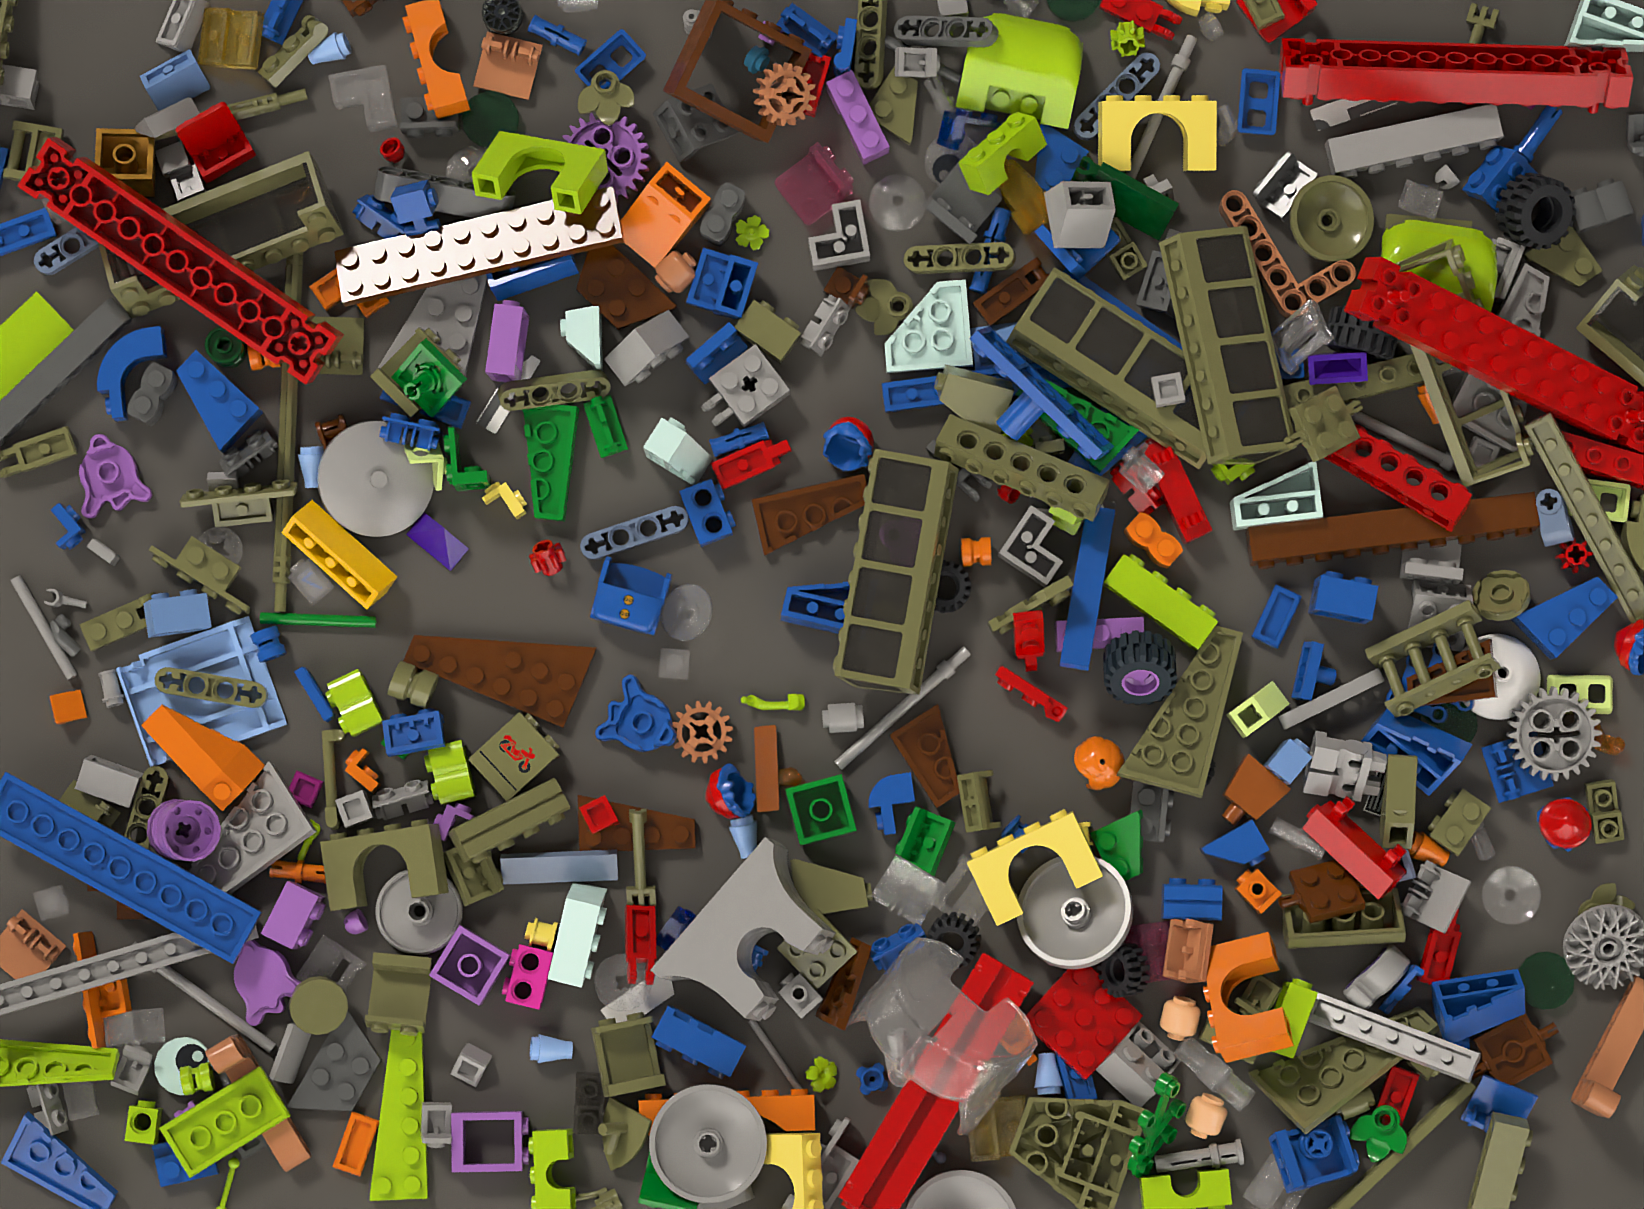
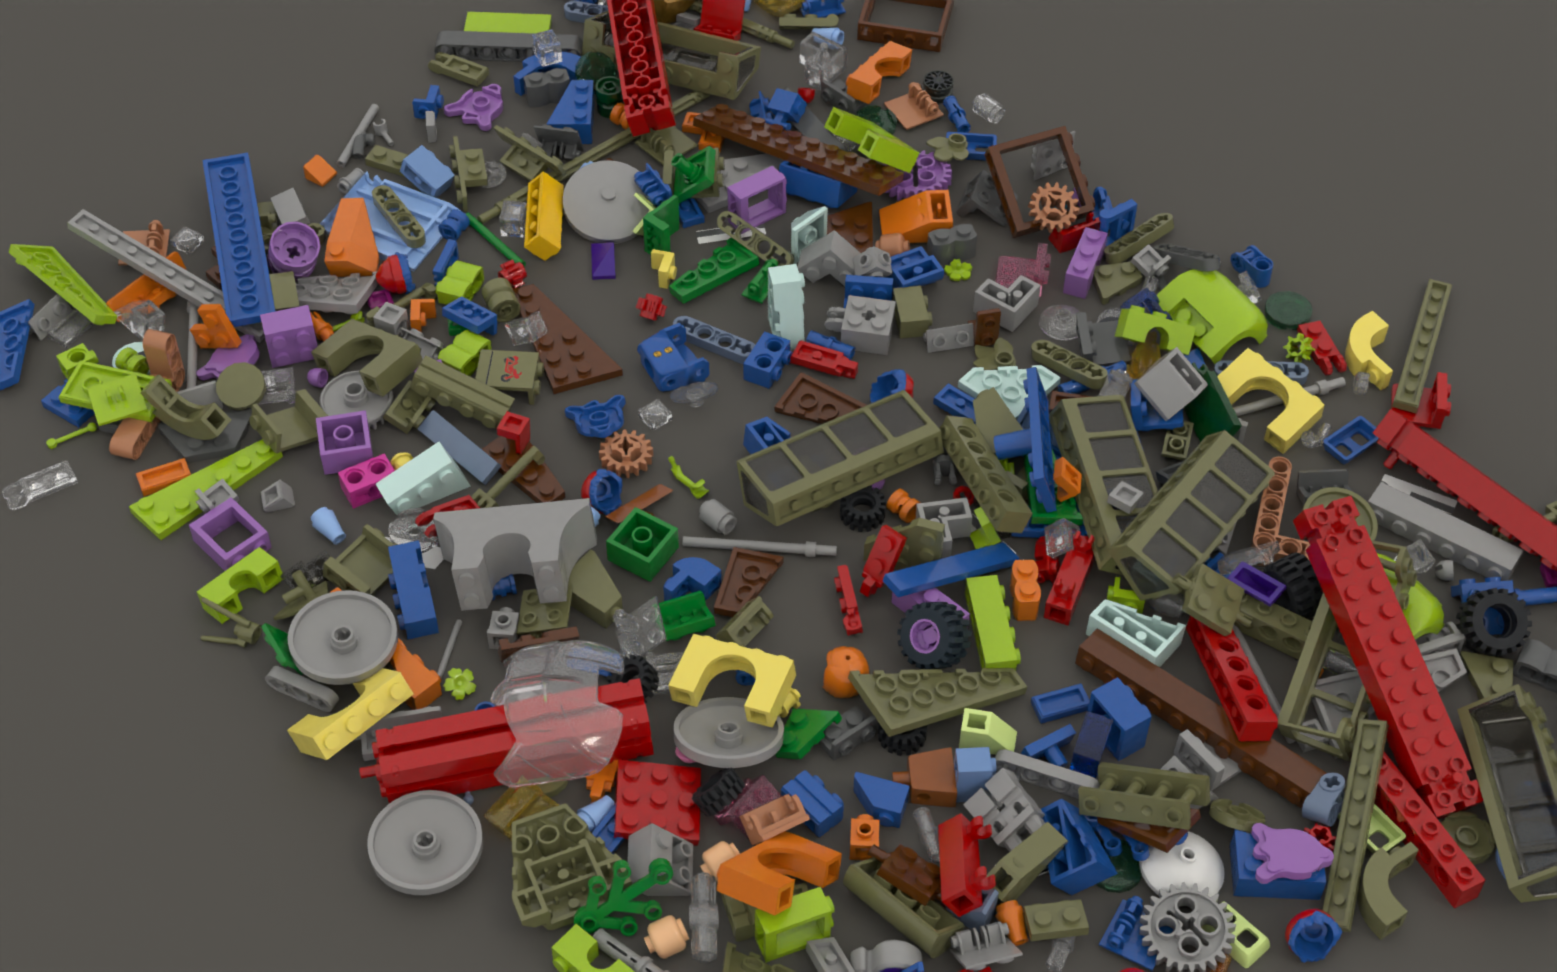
camera: 50 degrees right, 35 degrees down
(122, 360) = (547, 48): none -> clear brick
(132, 1069) = (110, 337): light grey bracket -> none
(177, 330) = (594, 67): none -> clear green tile
(218, 981) = (216, 330): none -> orange plate
(234, 880) = (284, 290): none -> olive slope
(244, 1130) = (117, 399): none -> lime piece
(296, 758) = (395, 274): none -> red hair
(317, 1081) = (183, 416): none -> olive arch
(388, 646) = (513, 273): none -> red gear
(478, 697) = (526, 329): none -> clear bracket
(692, 321) = (873, 263): none -> light grey brick
(1032, 258) = (1116, 383): none -> clear bracket
(1101, 413) = (1067, 479): none -> orange bracket
(1345, 641) = (1091, 744): none -> clear blue slope
(1576, 603) = (1287, 854): none -> medium lavender tile

